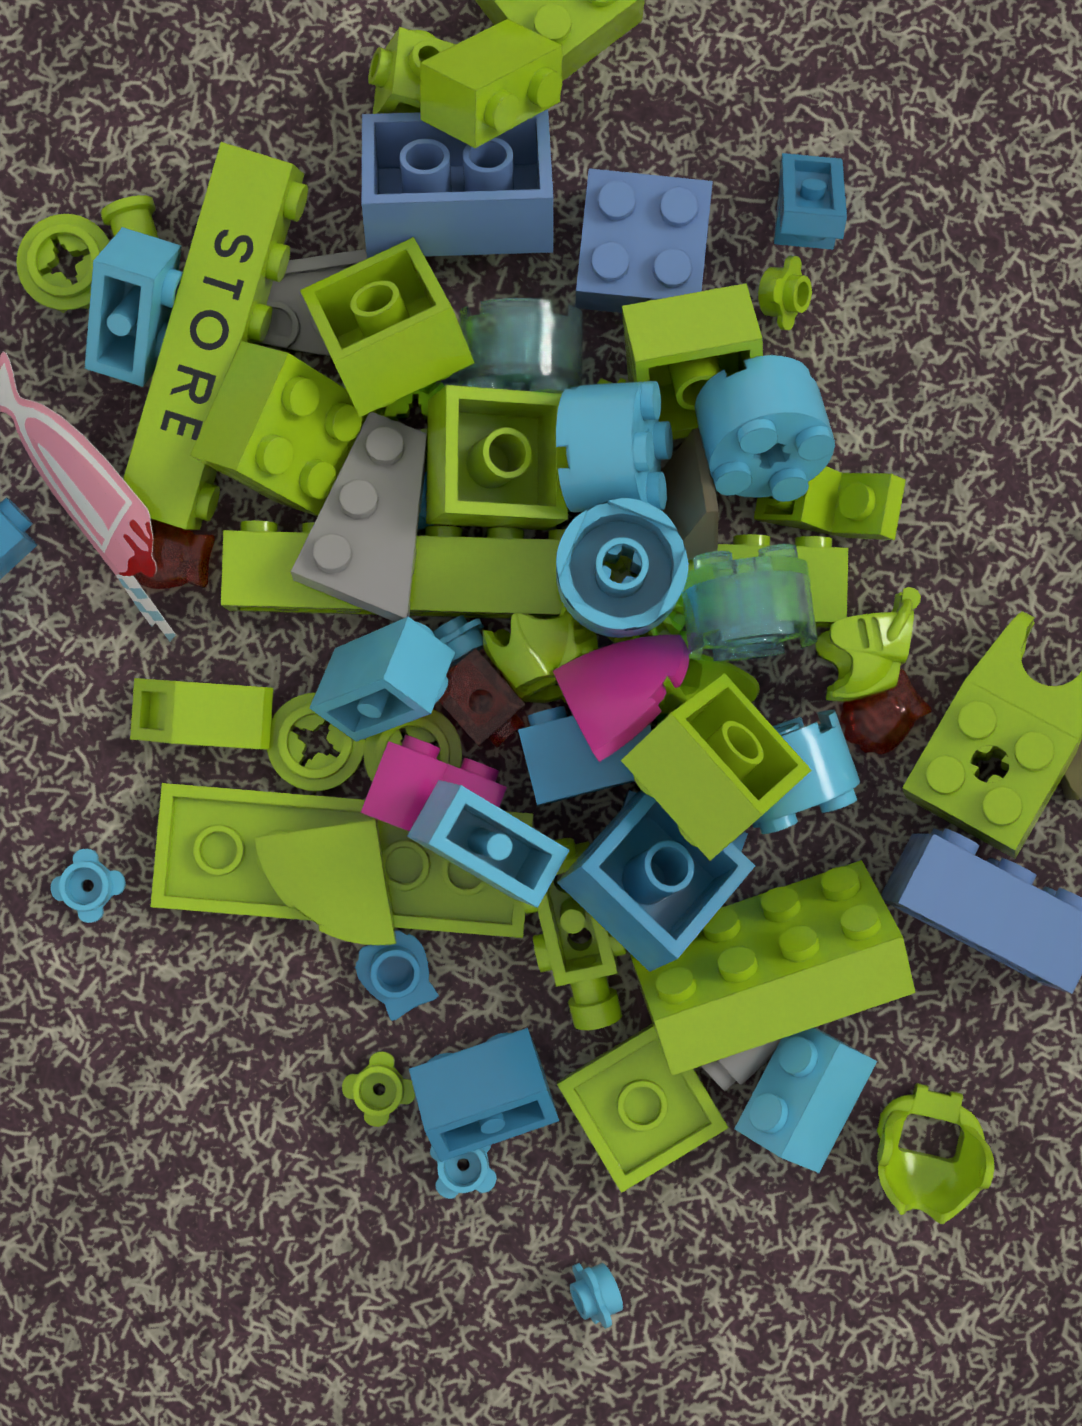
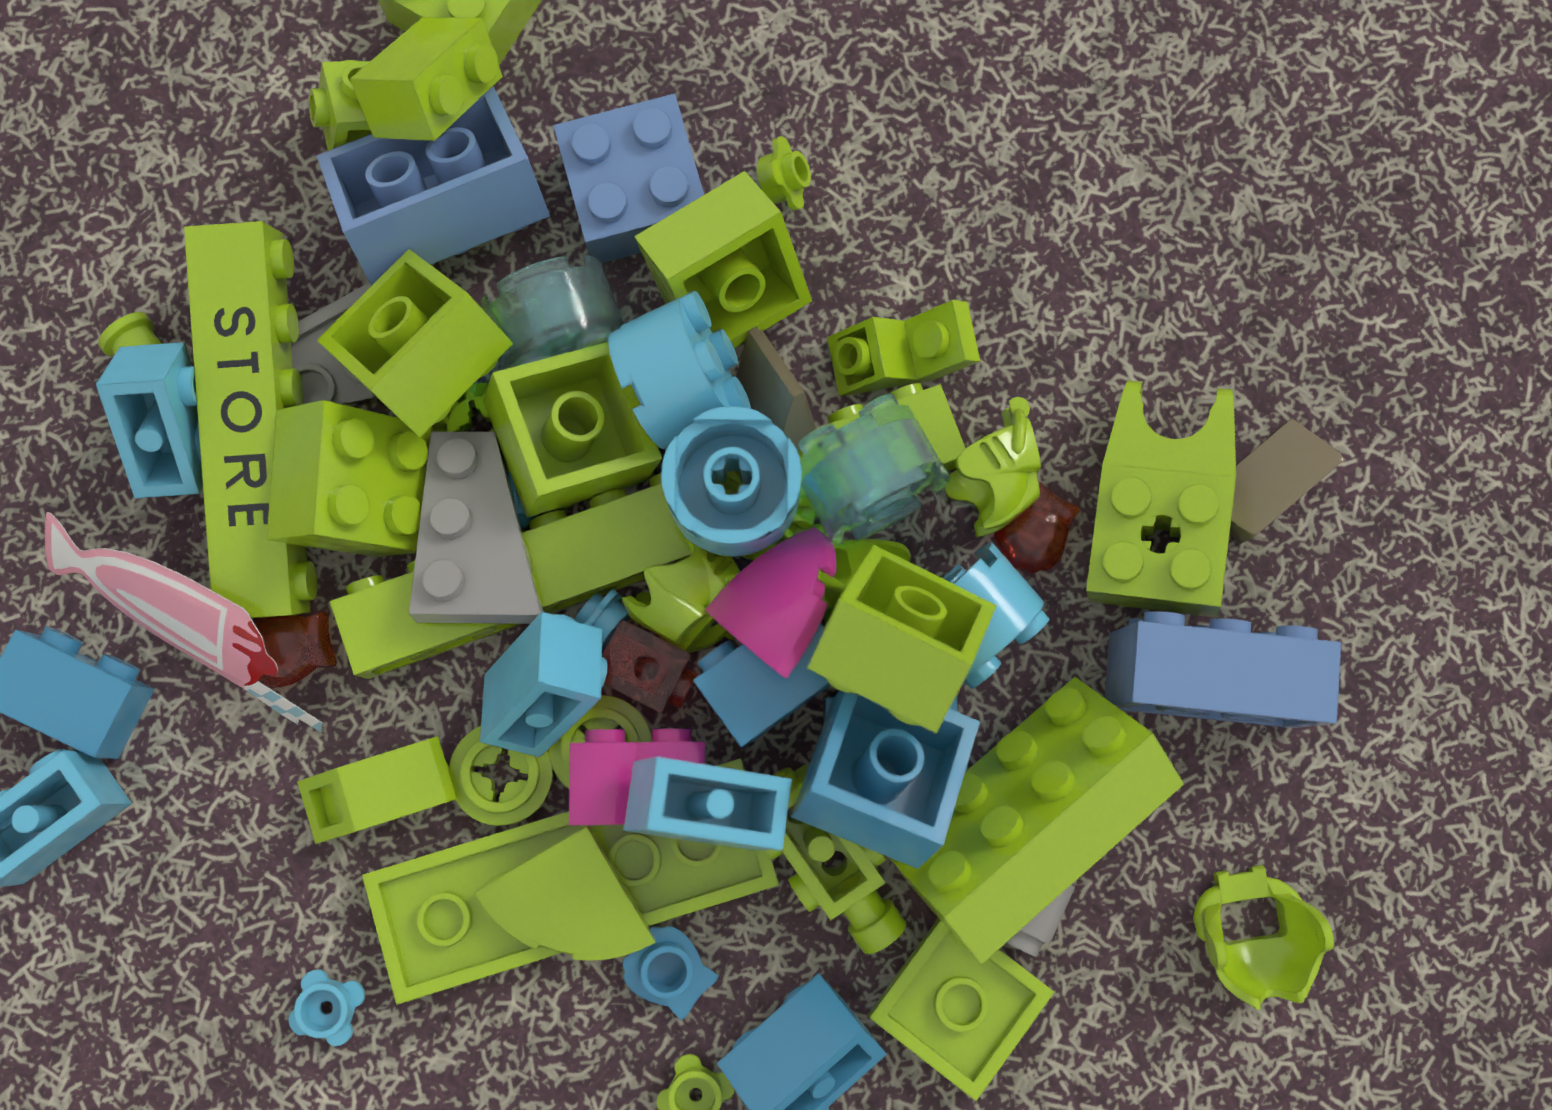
camera: 30 degrees left, 5 degrees down
(39, 255) = (54, 408): lime gear -> none
(764, 429) = (816, 301): medium azure brick -> none
(805, 1097) = (1117, 932): medium azure brick -> none
(810, 202) = (775, 86): dark azure slope -> none

